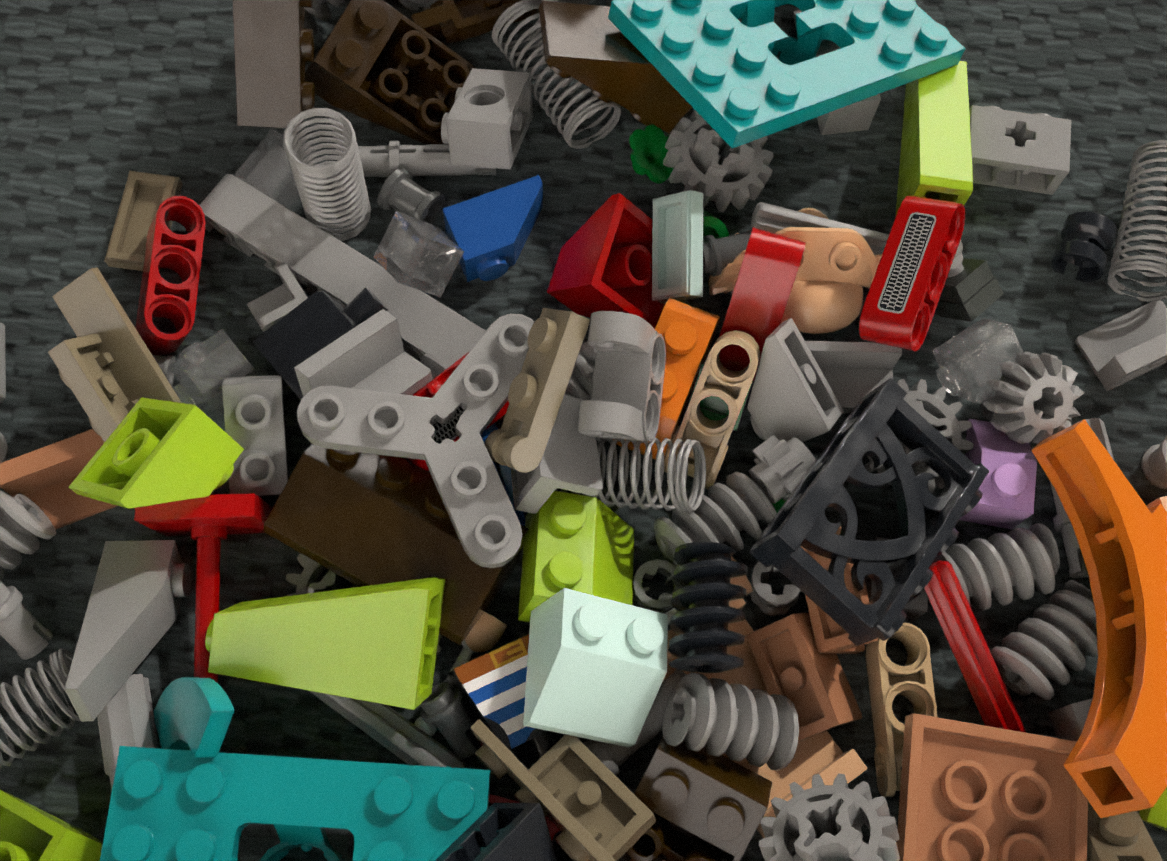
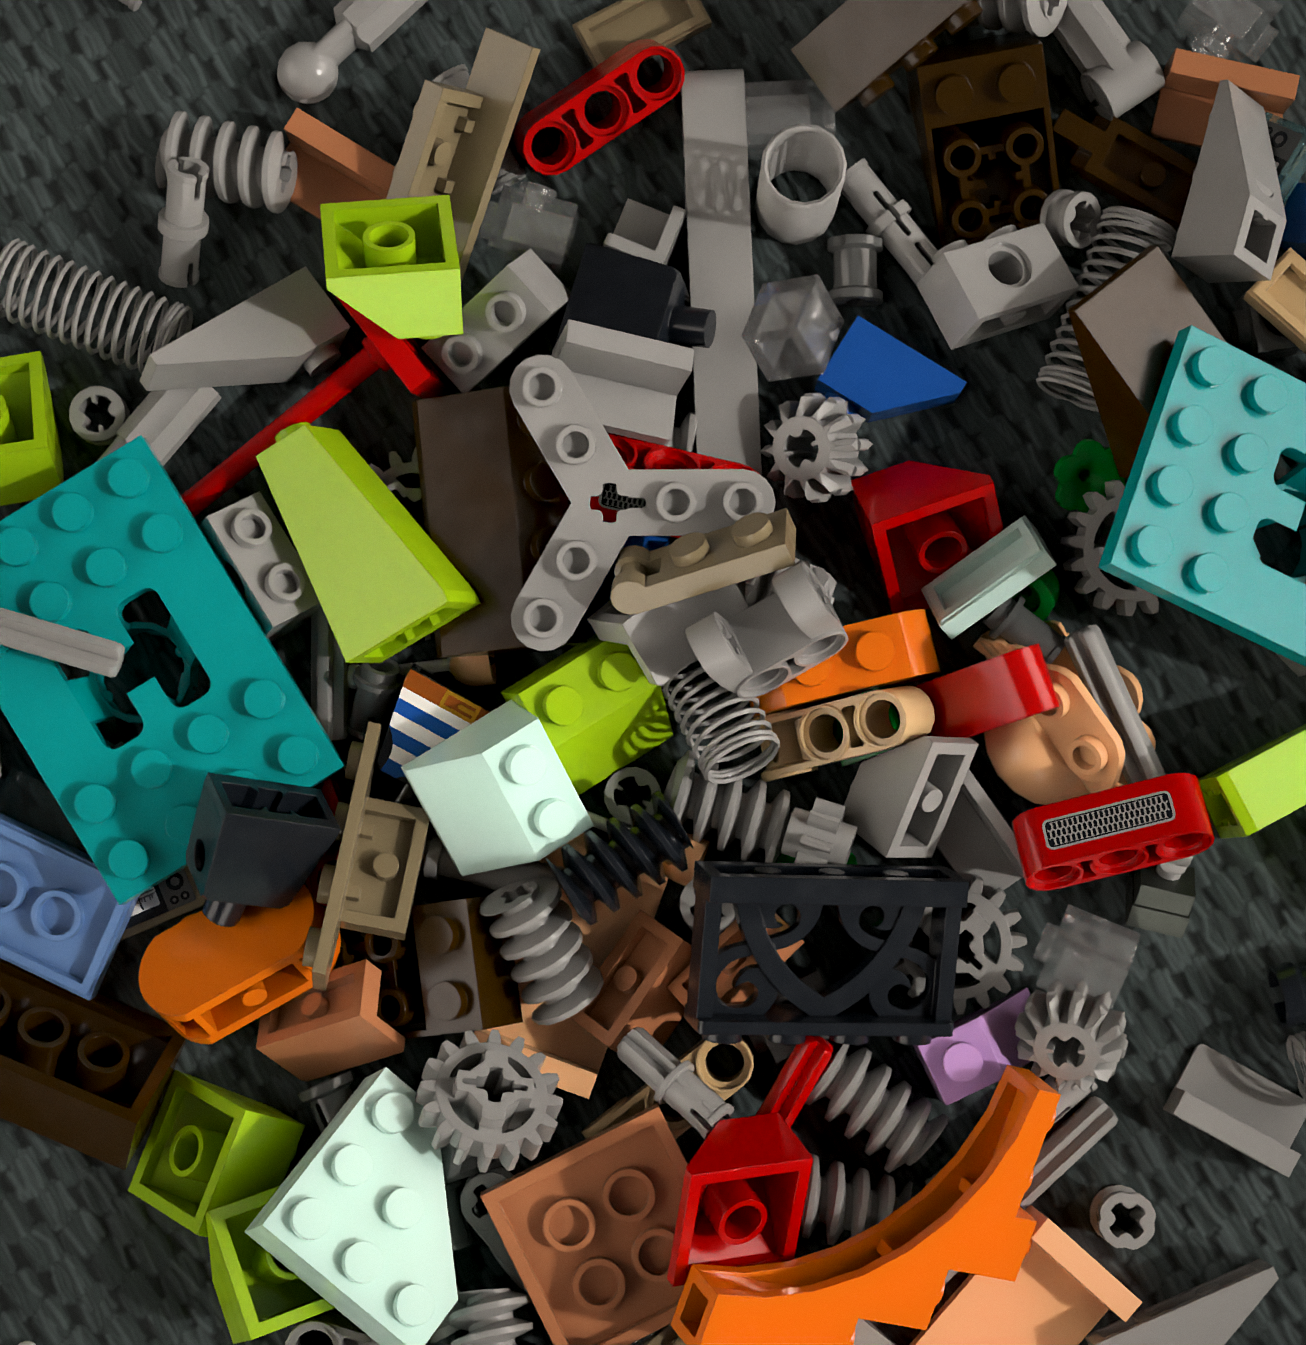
camera: 60 degrees right, 15 degrees up
(78, 798) = (81, 423): none -> light grey bush
(193, 716) = (211, 473): teal tile -> none
(293, 726) = (262, 565): none -> light grey brick
(480, 55) = (1071, 217): none -> light grey bush
(492, 281) = (836, 441): none -> light grey gear
(898, 691) = (673, 1081): none -> light grey axle
(1027, 694) = (741, 1197): none -> red slope

